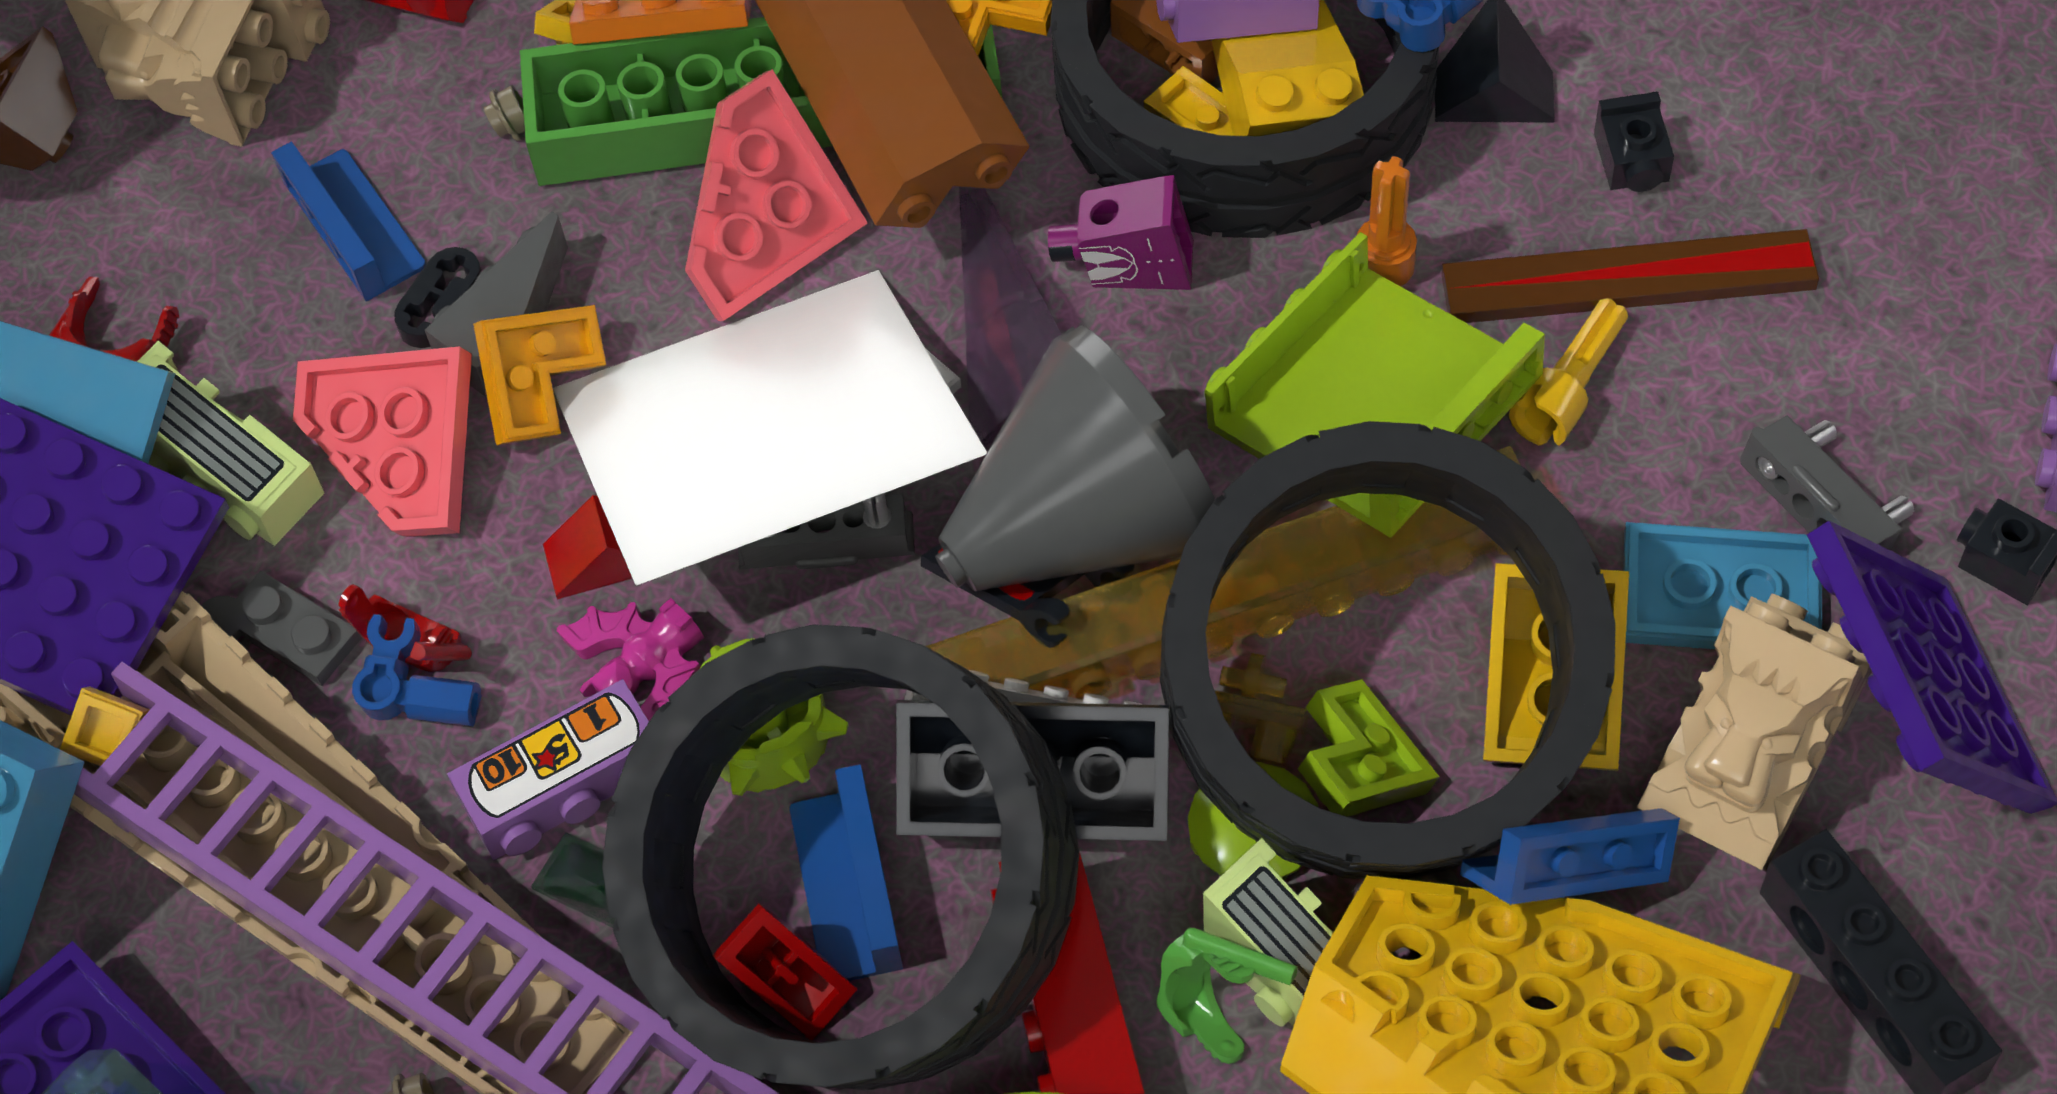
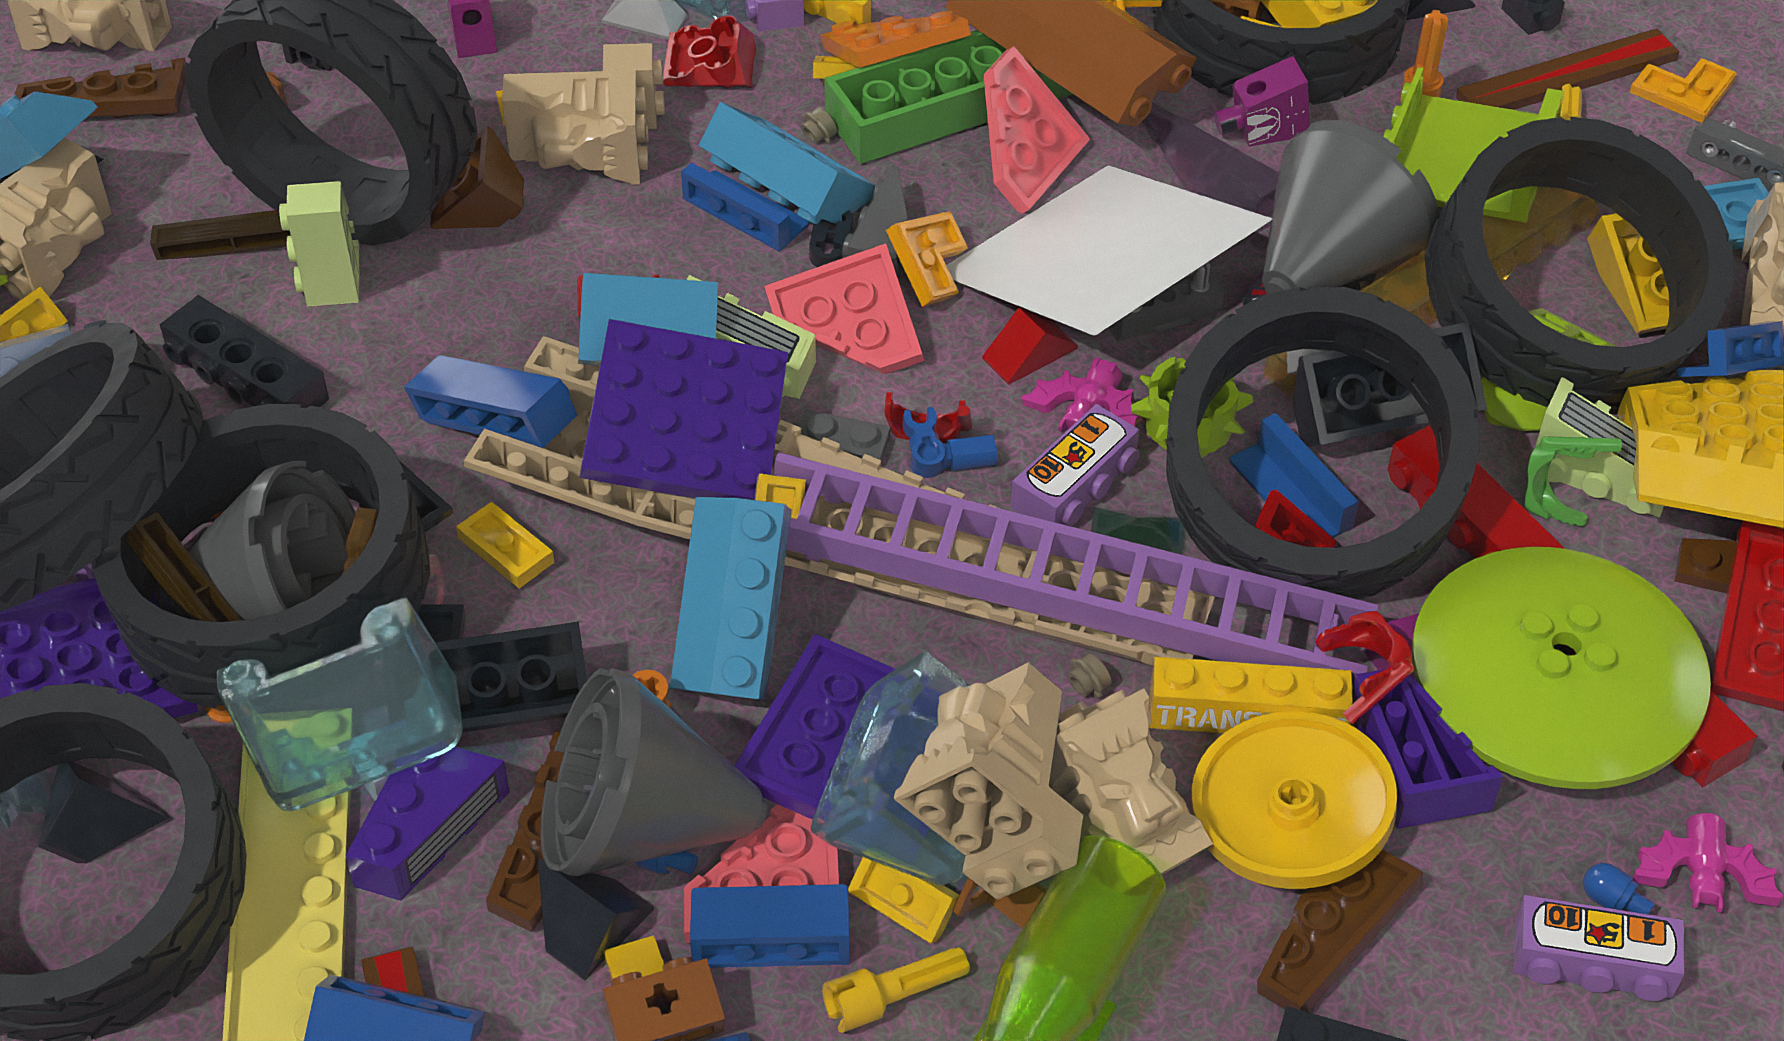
camera: 25 degrees left, 10 degrees down
(427, 168) = (784, 165): none -> dark azure slope
(1797, 360) = (1688, 96): none -> light orange tile

